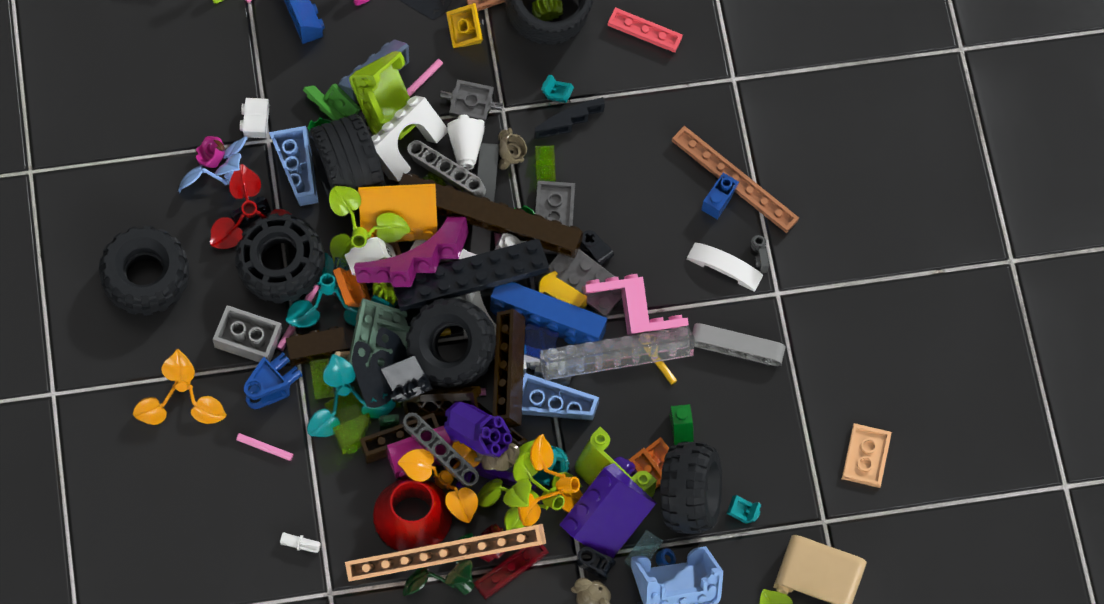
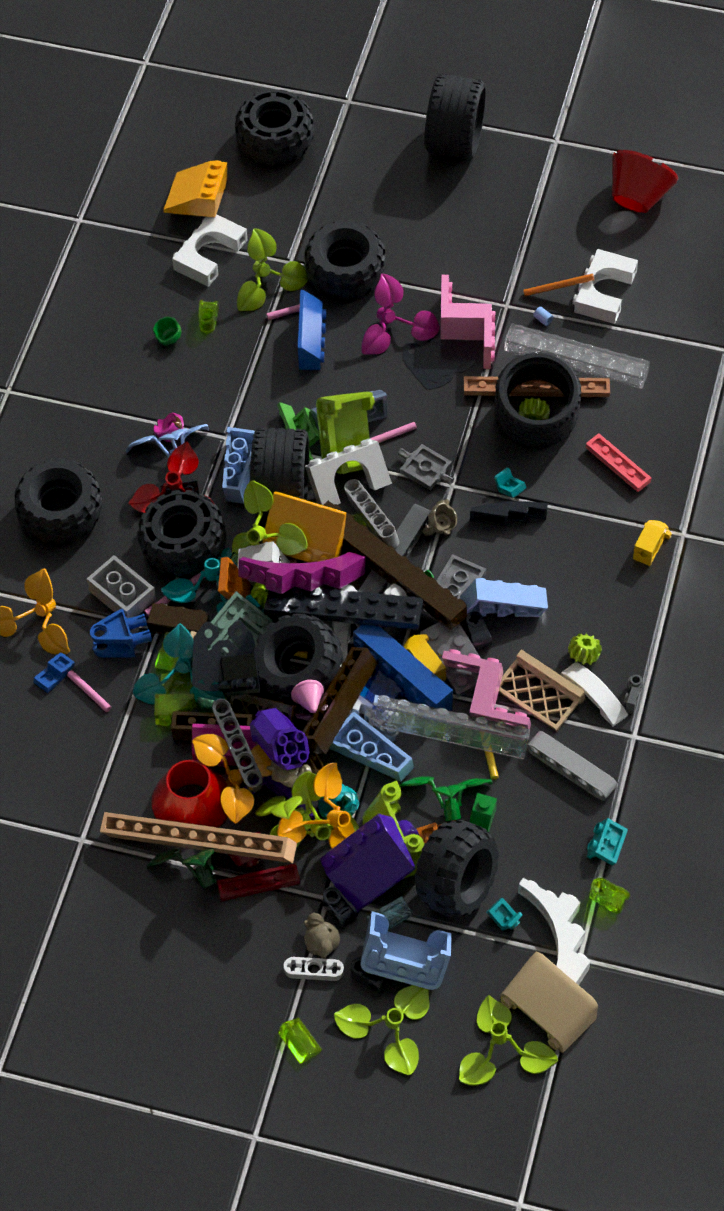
camera: 30 degrees right, 10 degrees down
(158, 52) = (167, 331): none -> green hair
(188, 18) = (207, 315): none -> clear neon green piece
(223, 441) = (54, 673): none -> blue slope
(255, 117) = (224, 413): white brick -> none
(300, 543) = (76, 783): white axle -> none
(464, 26) = (450, 401): yellow slope -> none
(466, 139) = (402, 494): white cone -> none
(482, 376) = (308, 694): none -> bright pink hat
(545, 163) = (468, 543): clear neon green slope -> none
(607, 207) = (505, 598): none -> light blue wedge
(650, 420) = (450, 805): none -> green plant
(660, 557) = (402, 930): blue piece -> none
(684, 269) = (552, 680): none -> tan fence
(699, 227) = (584, 649): none -> lime gear
(709, 97) = (650, 541): none -> yellow piece
(719, 196) = (617, 628): blue slope -> none
(747, 188) = (641, 620): nougat plate -> none
(800, 404) = (607, 841): none -> teal bracket
(805, 506) = (559, 915): none -> white arch
(828, 454) = (609, 896): none -> clear neon green piece
(866, 455) = (650, 913): light nougat tile -> none

